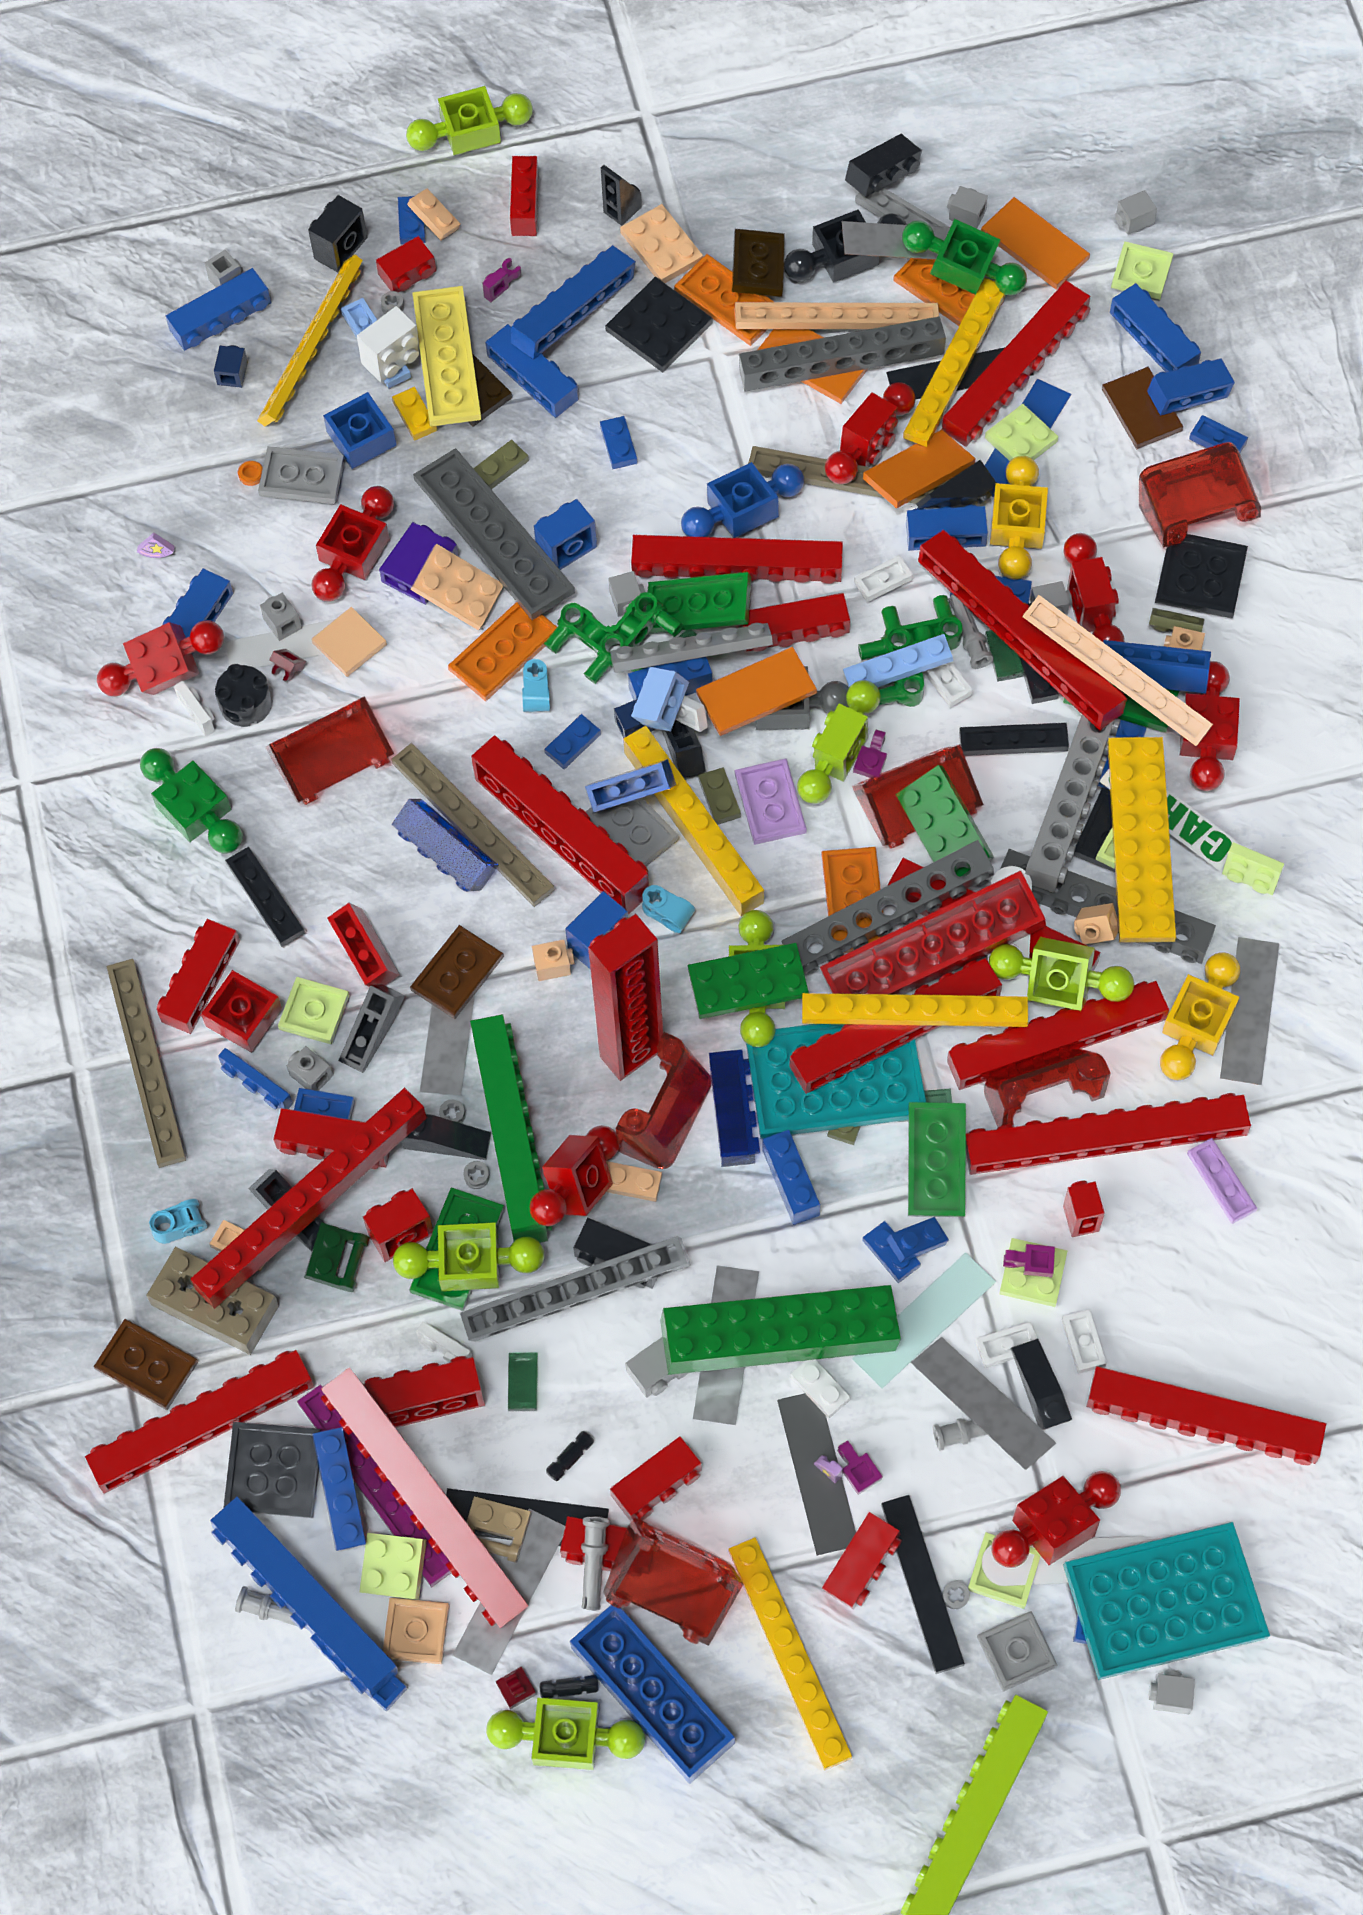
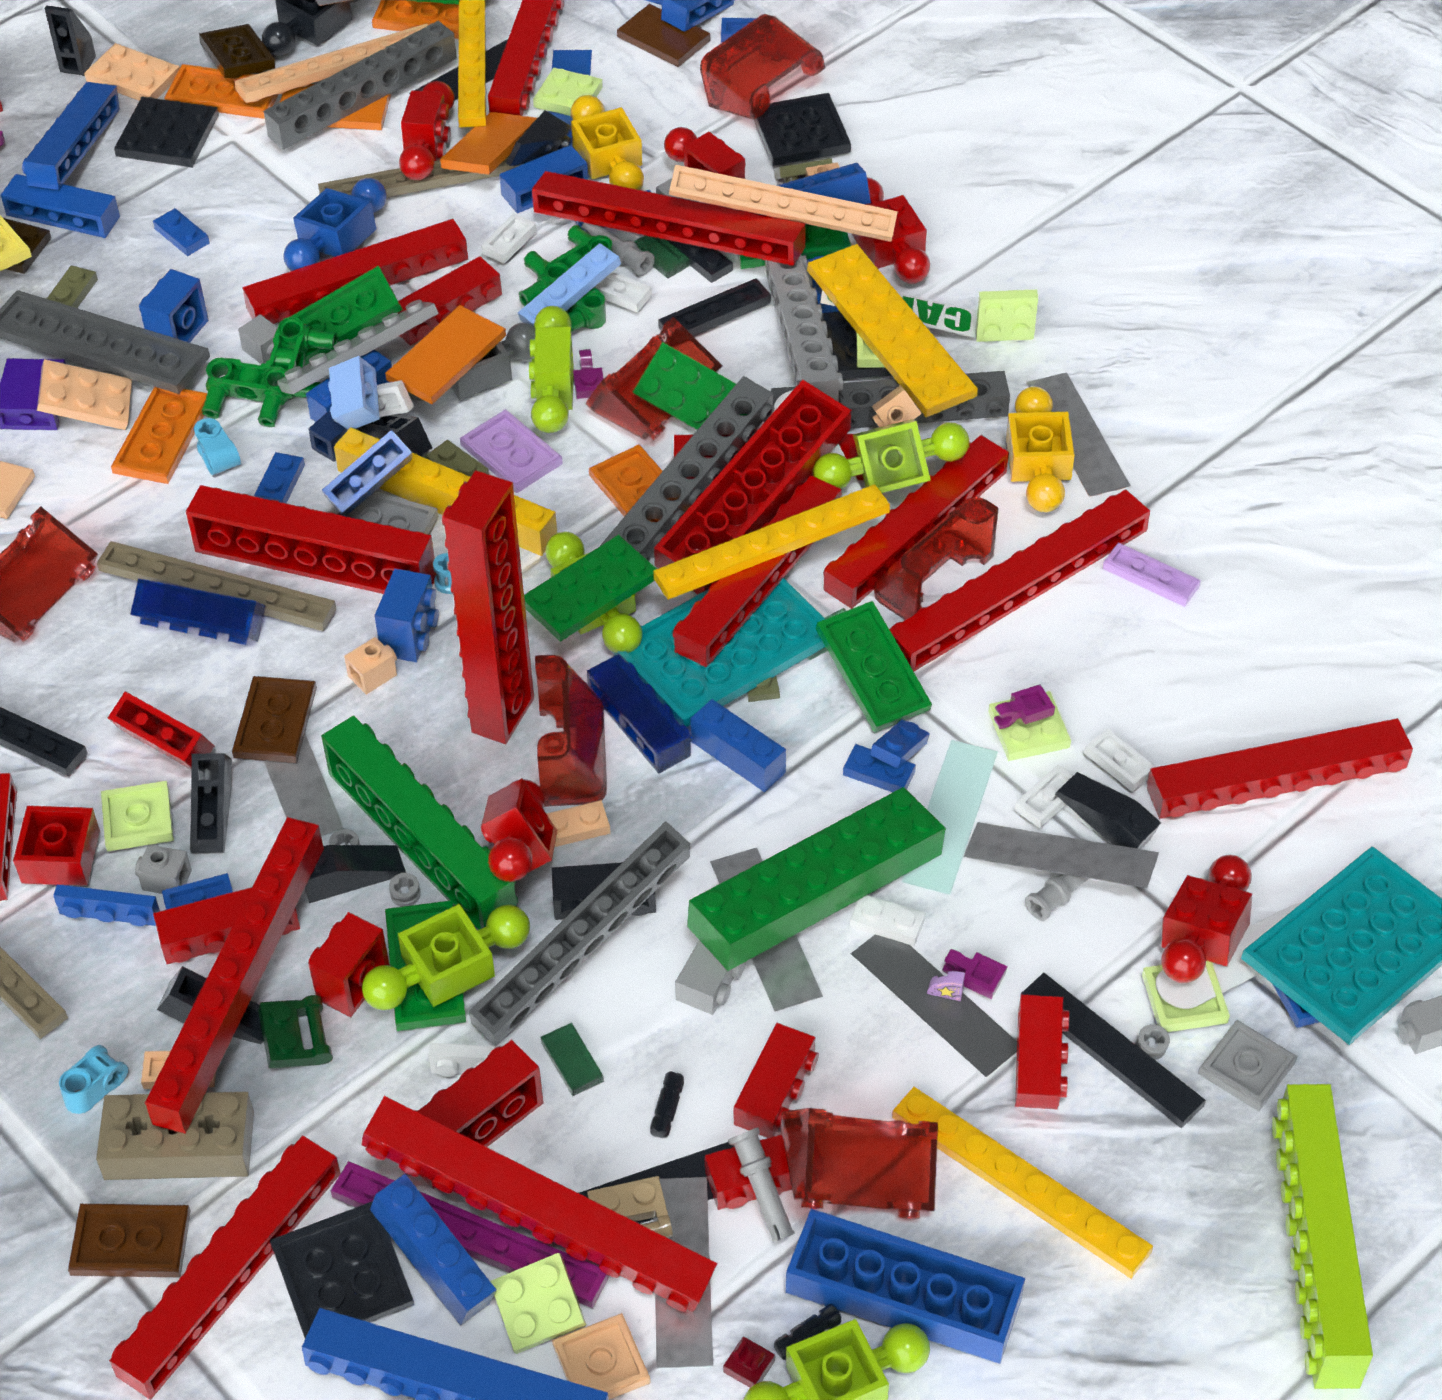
camera: 30 degrees left, 15 degrees down
(1083, 1208) = (1044, 643): red brick -> none

